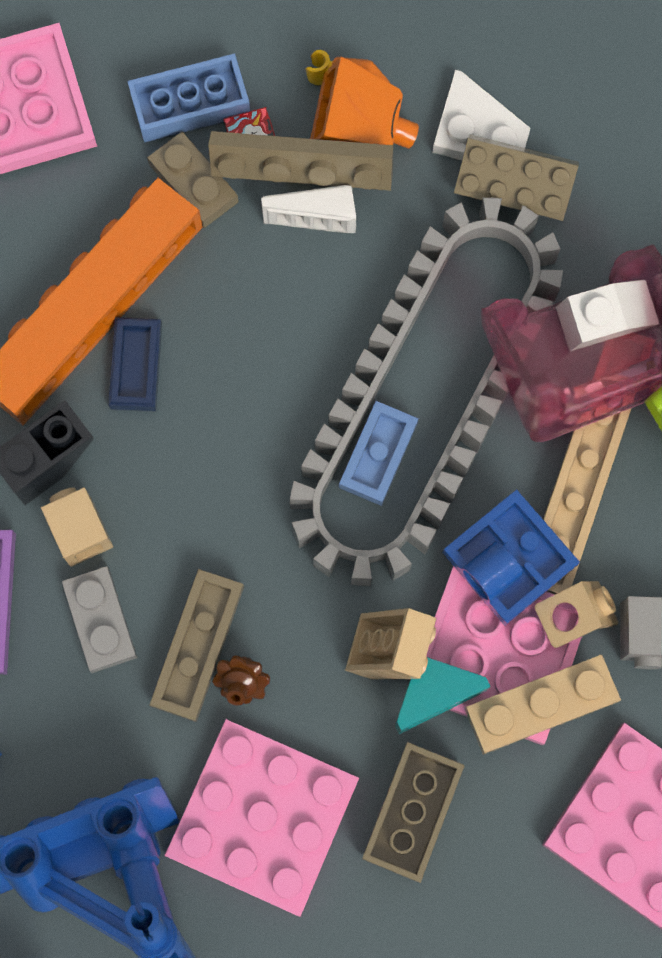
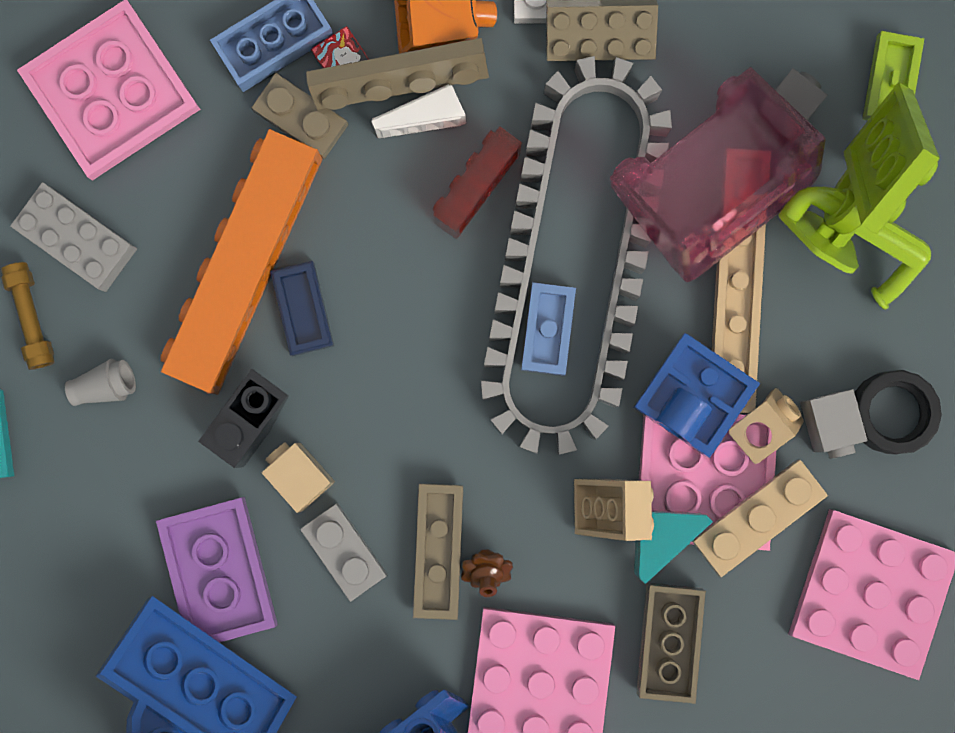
camera: 10 degrees left, 10 degrees up
(348, 288) = (477, 183): none -> clear red piece
(606, 313) = (724, 145): white slope -> none

